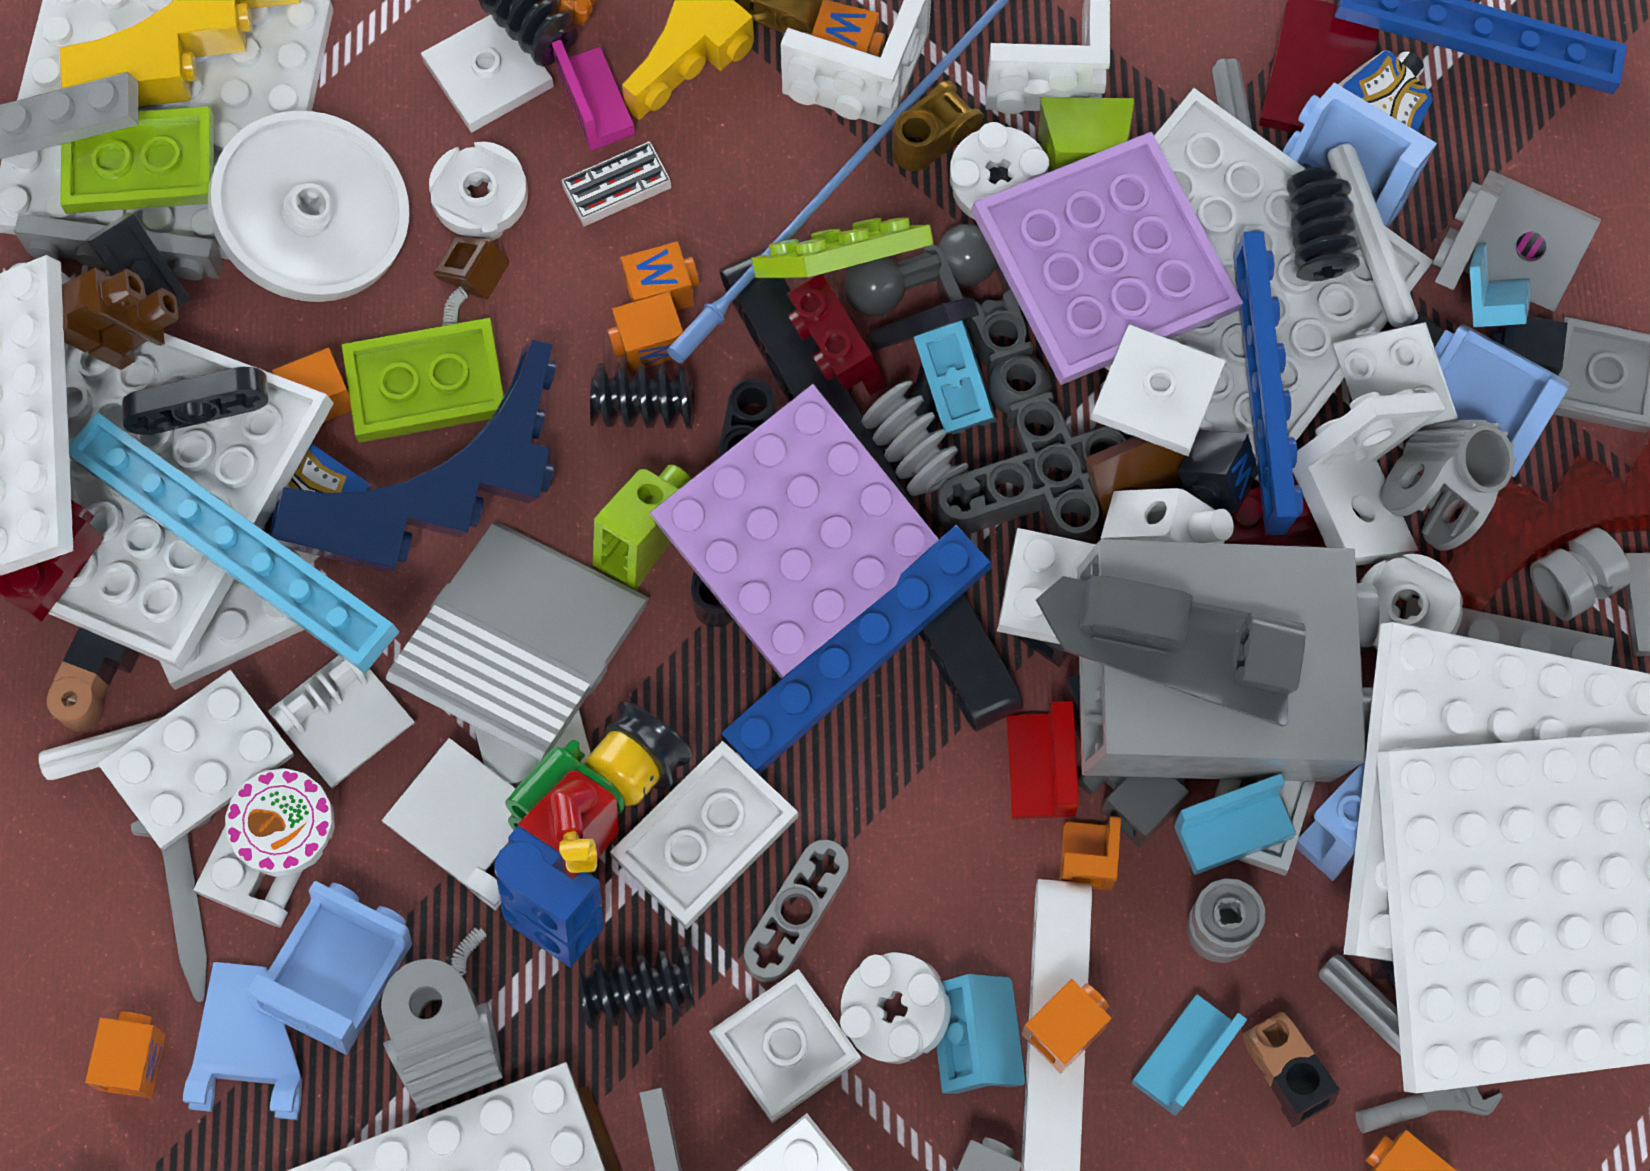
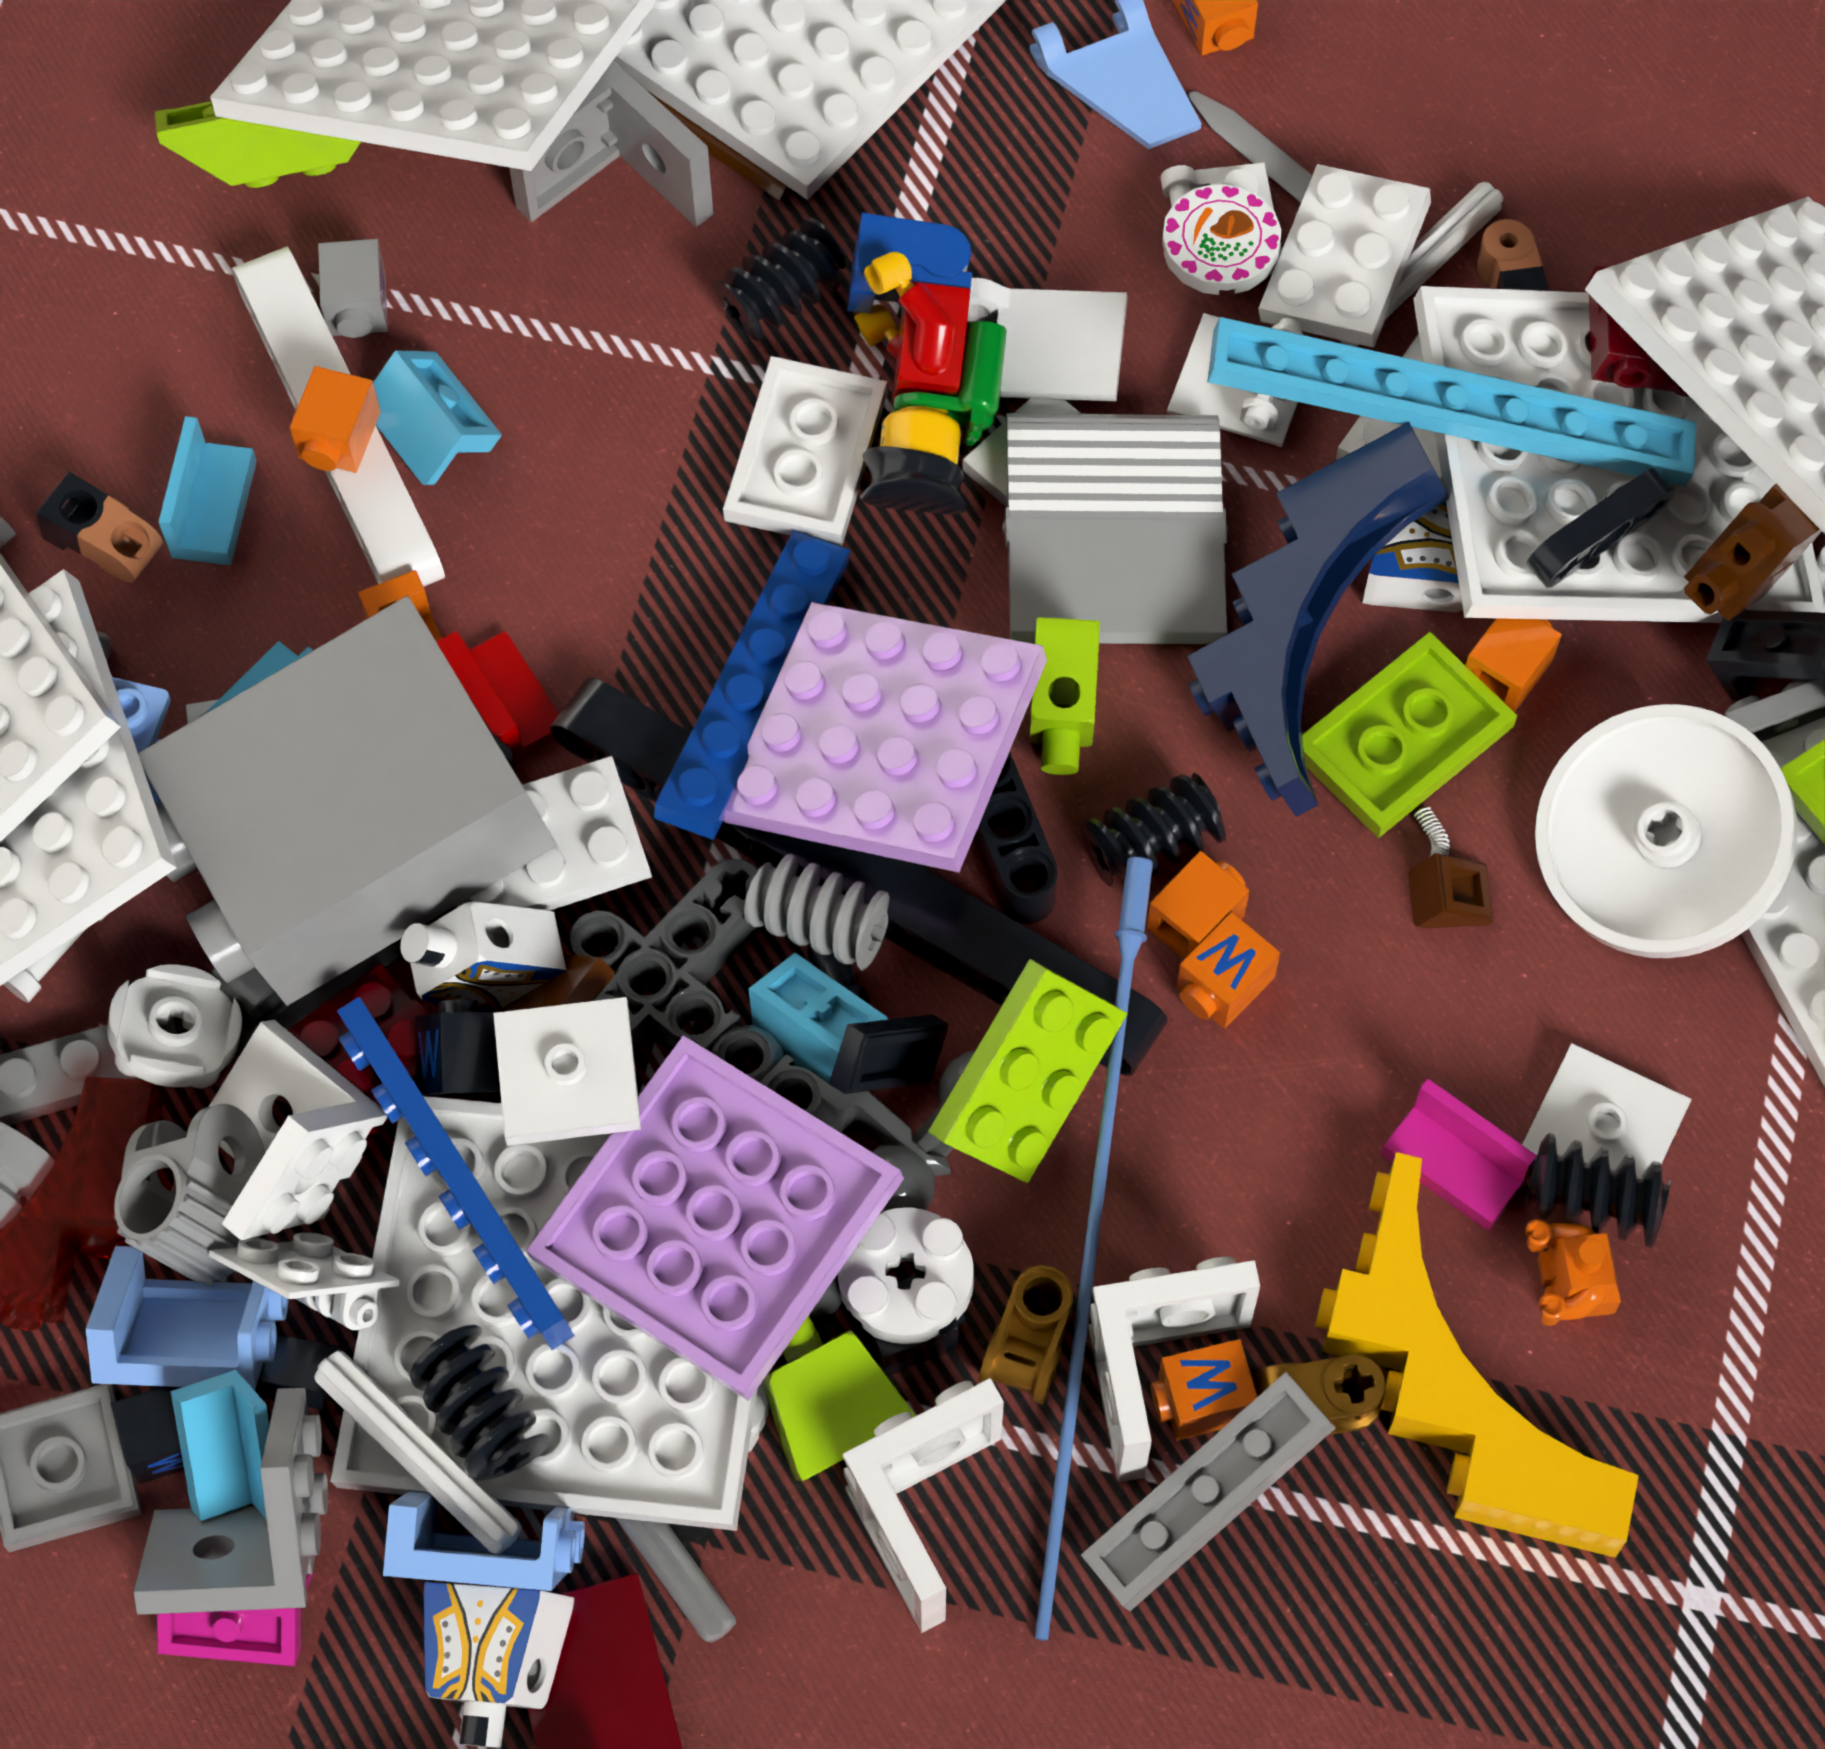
camera: 150 degrees right, 5 degrees down
(332, 967) = (1083, 156): light blue panel -> none
(441, 1053) = (939, 140): light grey piece -> none
(458, 963) = (971, 237): white leg -> none
(481, 216) = (1481, 1002): white plate -> none
(616, 184) = (1356, 1072): tile -> none
(785, 1046) = (611, 313): white plate -> none
(828, 884) = (683, 457): light grey beam -> none
(840, 344) = (962, 973): dark red plate -> none
(906, 1036) = (526, 363): white plate -> none
(1182, 644) = (400, 725): dark grey panel -> none
(1225, 920) = (227, 619): light grey wheel -> none

